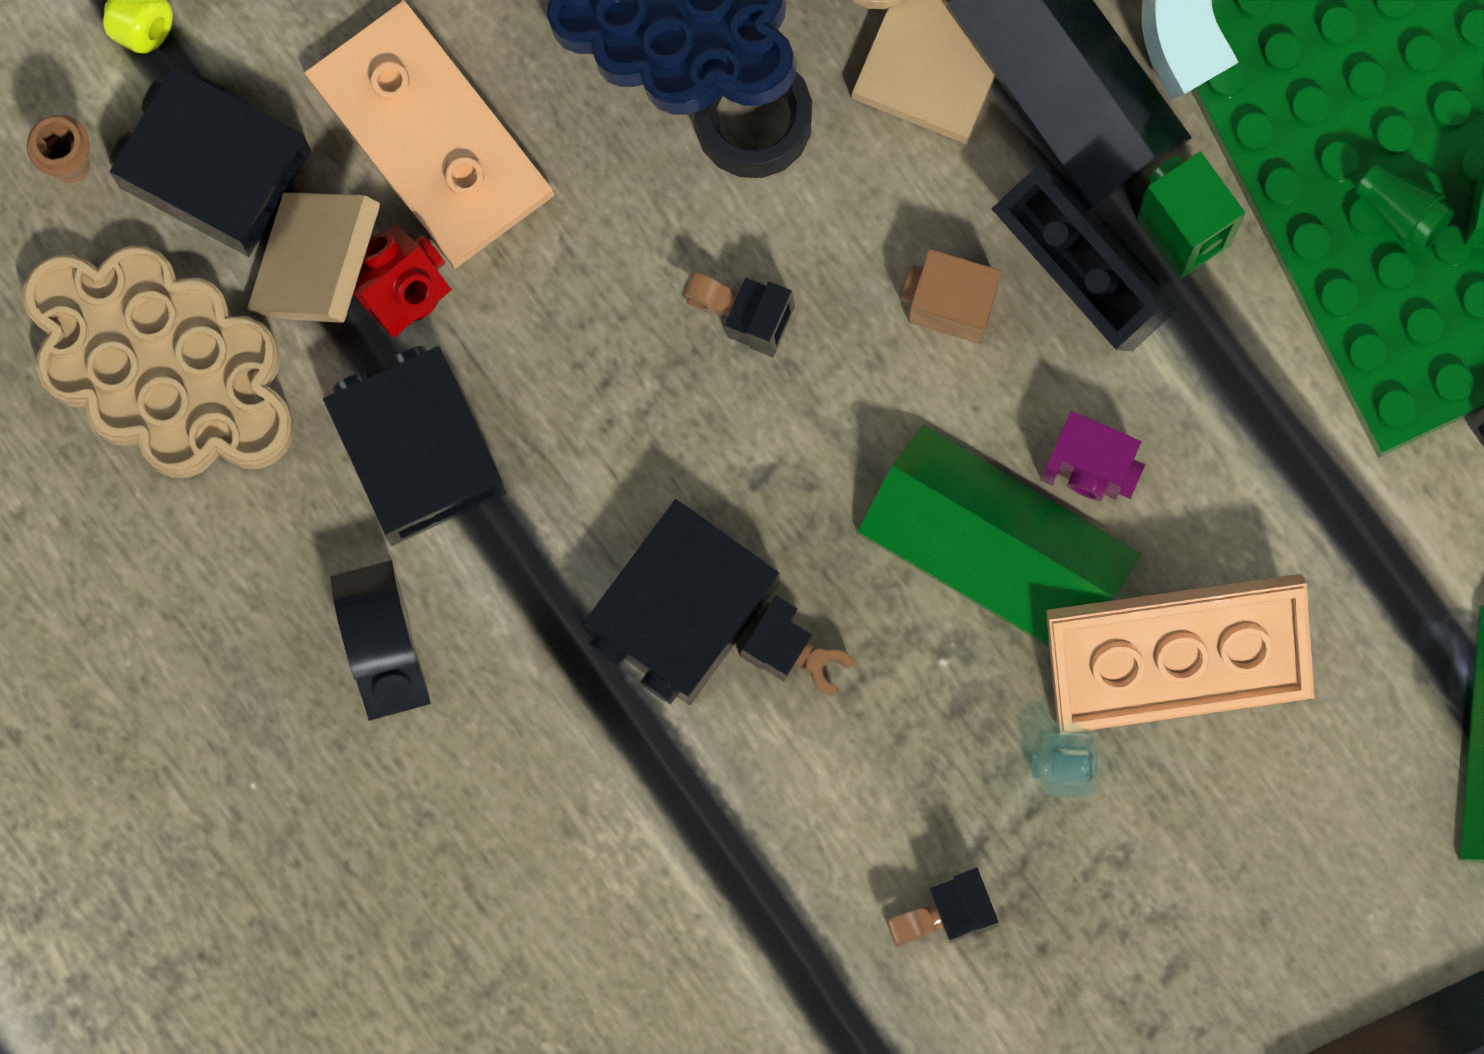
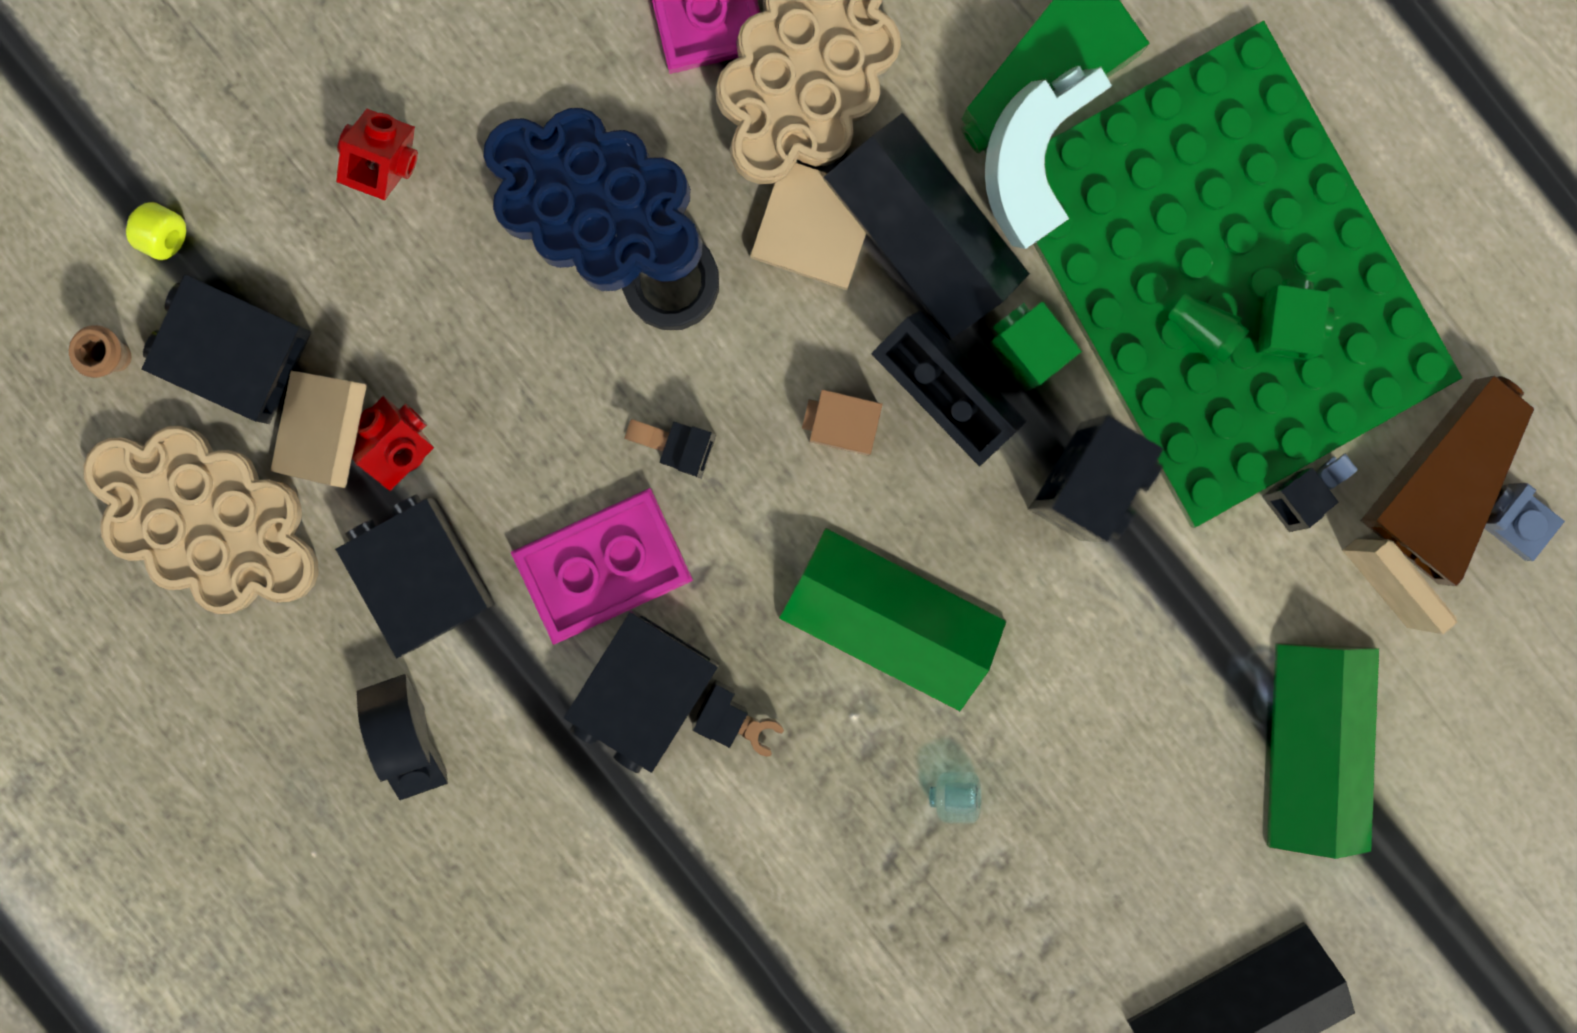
camera: 15 degrees left, 10 degrees up
(429, 134) = (405, 312): light nougat plate -> none
(642, 451) = (602, 566): none -> dark pink tile
(959, 907) = (879, 918): black piece -> none
(1095, 459) = (966, 551): magenta brick -> none
(1181, 653) = (1043, 706): light nougat plate -> none
(1258, 372) = (1098, 480): none -> black brick

